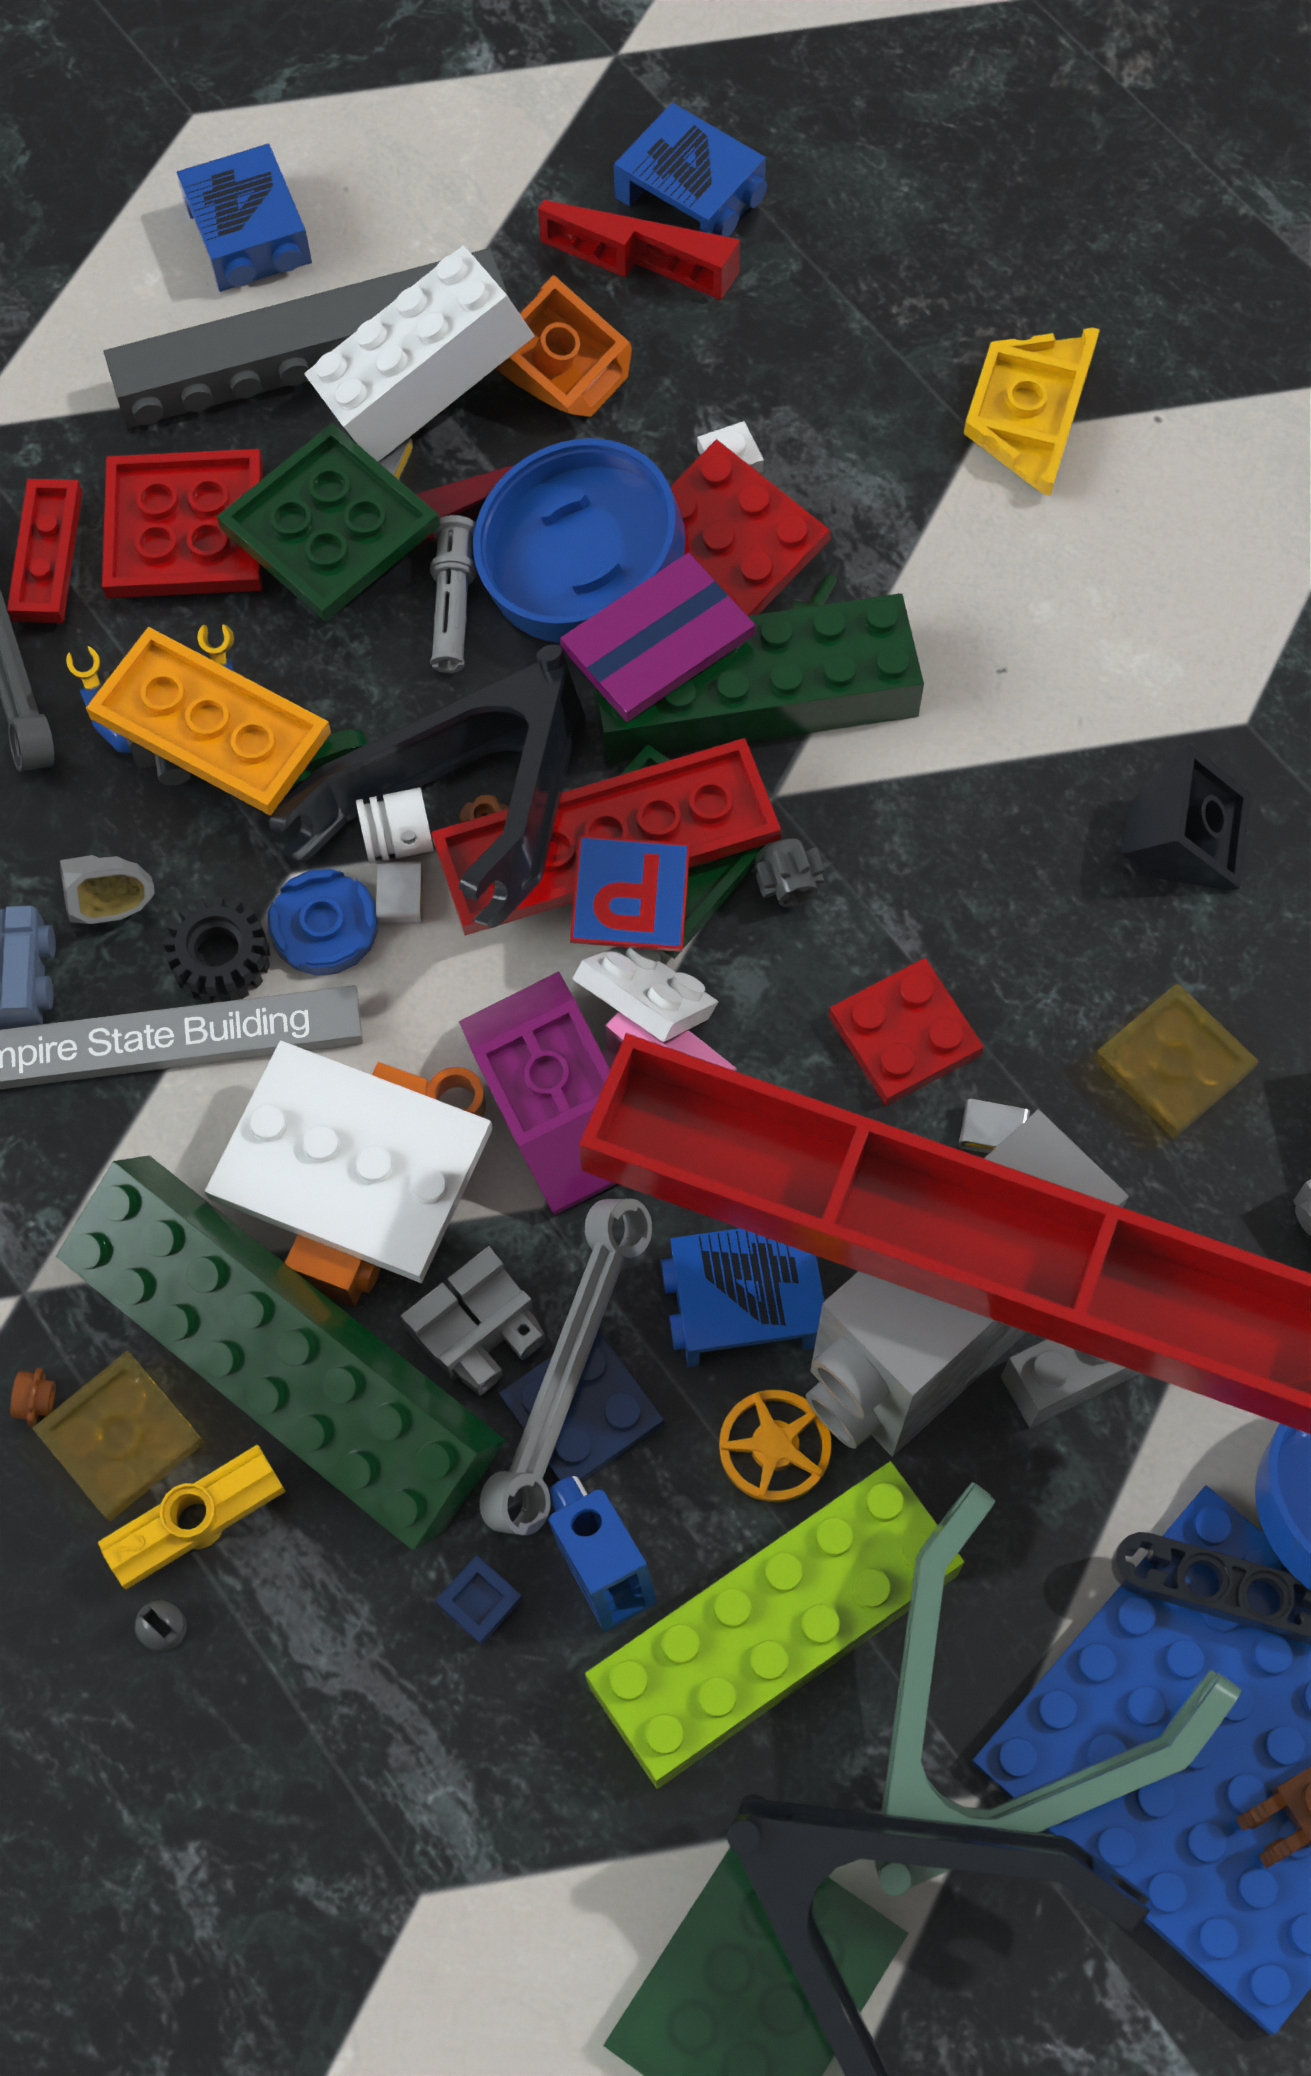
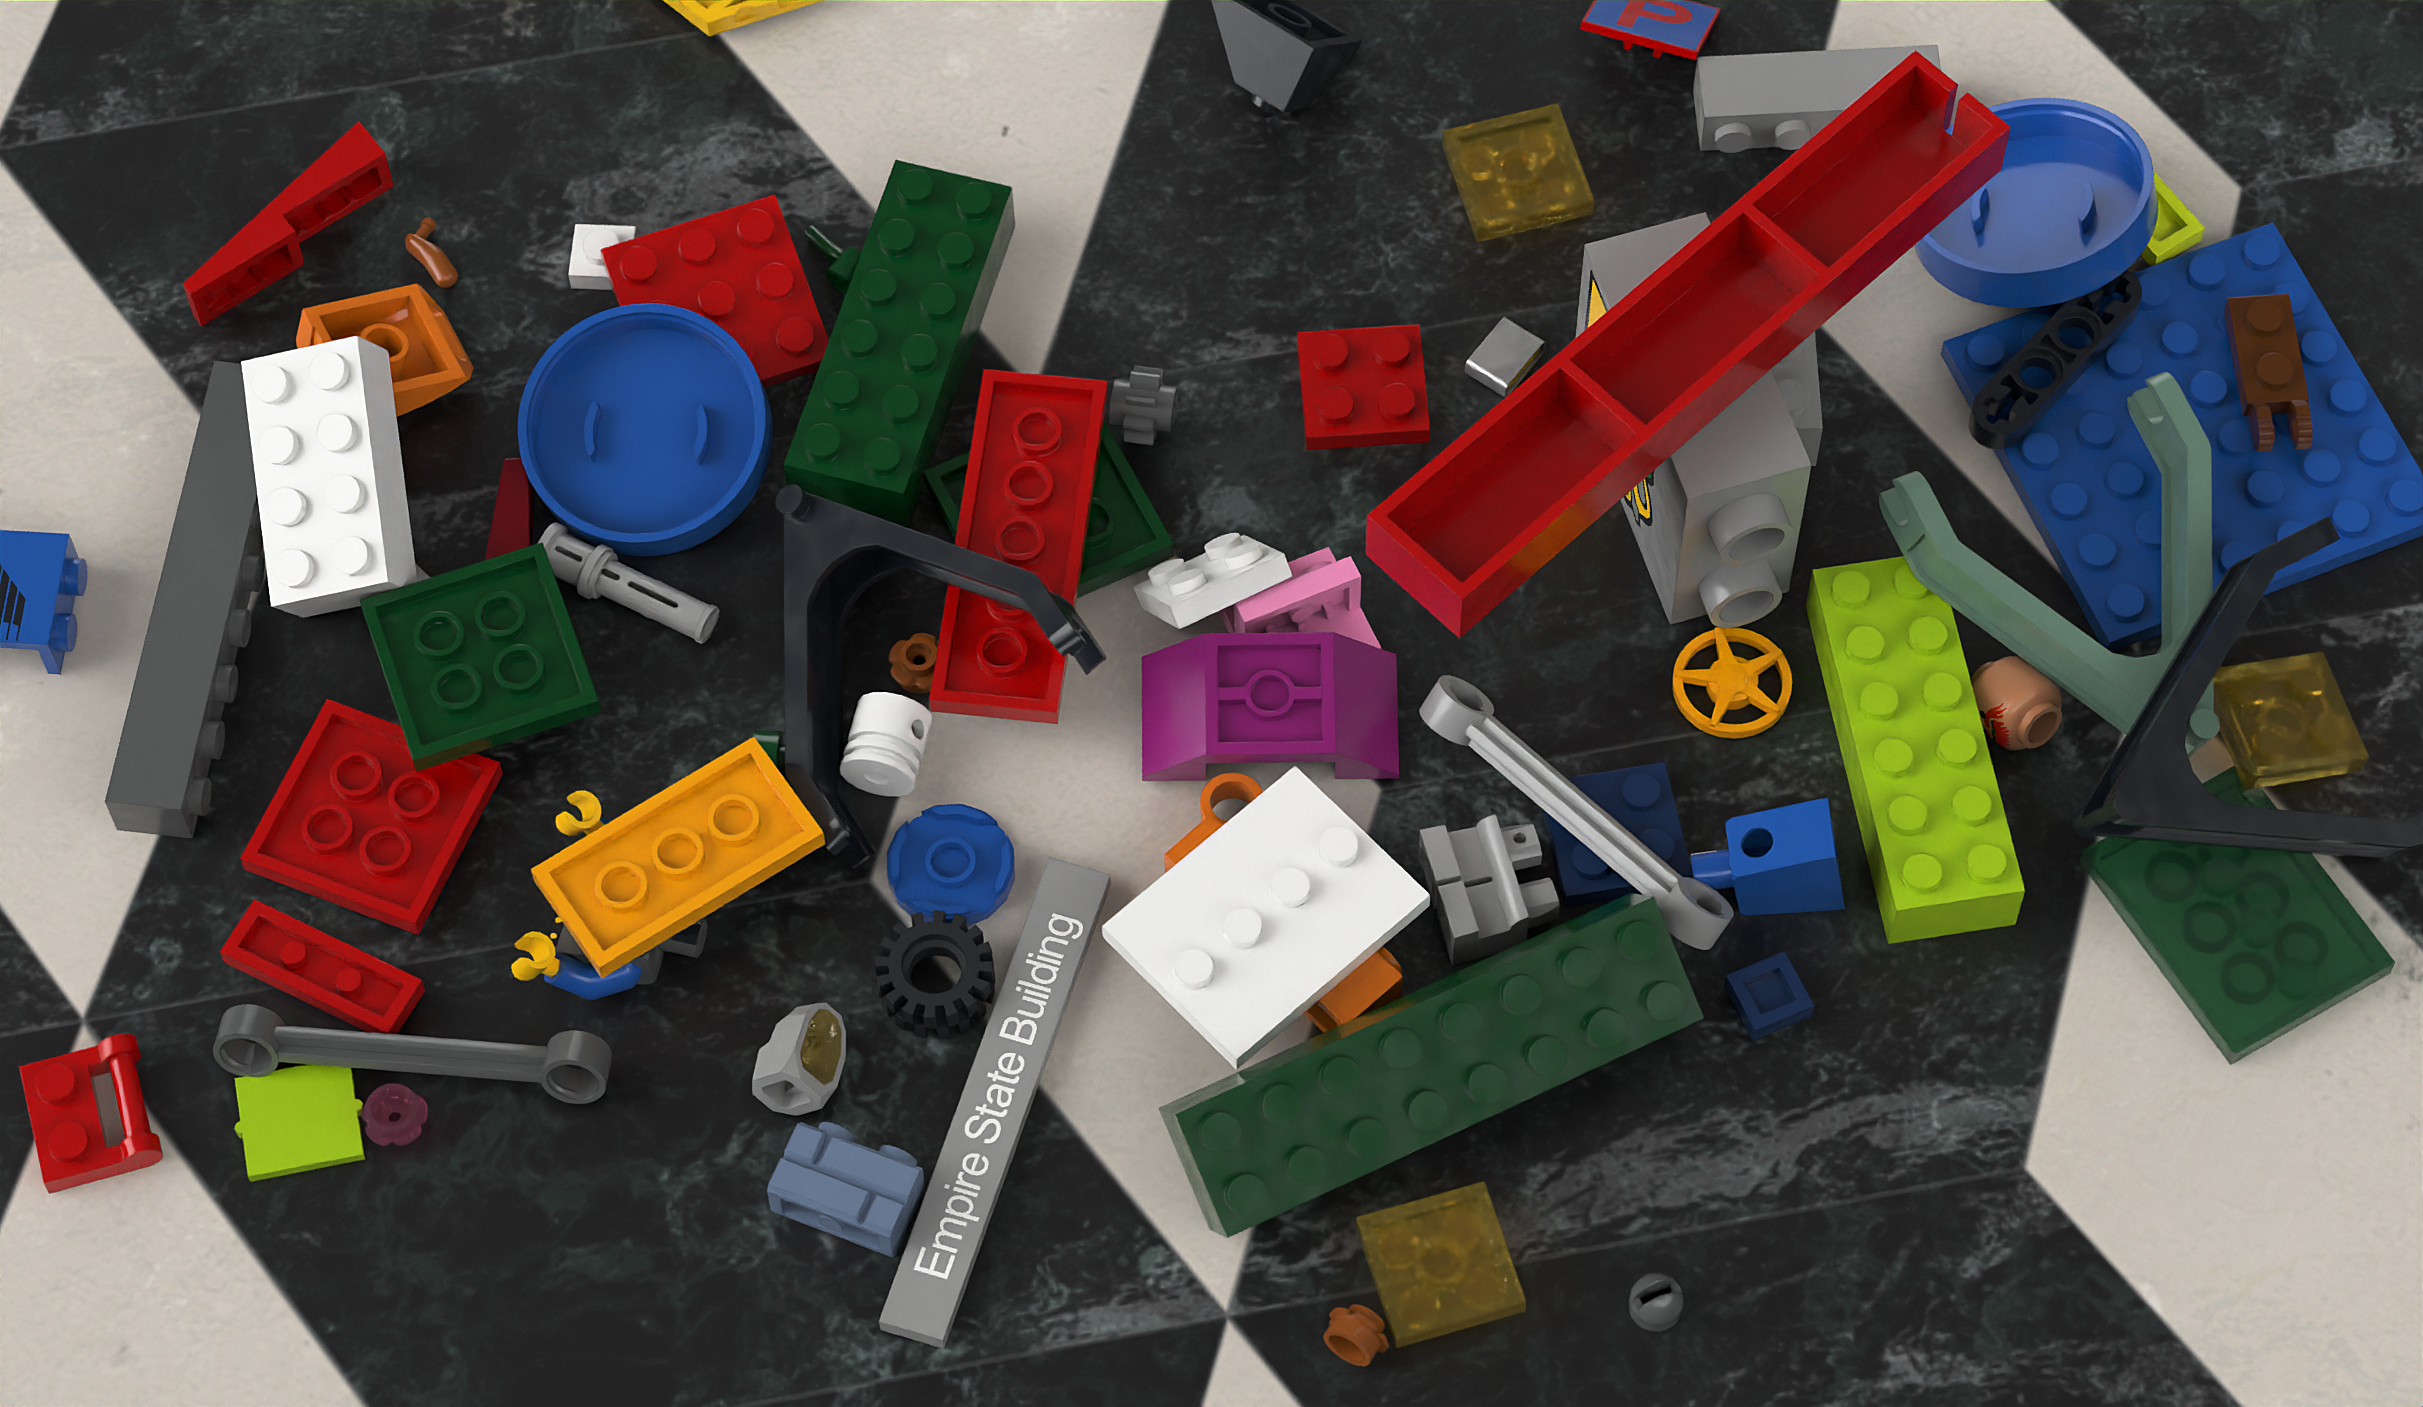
camera: 65 degrees left, 5 degrees down
(155, 1536) = (1567, 1256): yellow piece -> none
(399, 892) = (956, 777): flat silver piece -> none
(630, 893) = (1105, 543): blue piece -> none
(657, 636) = (830, 390): magenta tile -> none
(668, 347) = (431, 255): none -> dark orange piece
(692, 170) = (224, 131): blue panel -> none
(740, 1292) = (1573, 637): blue panel -> none
(860, 1697) = (2016, 703): none -> nougat head
(971, 1959) = (2286, 721): none -> clear yellow plate

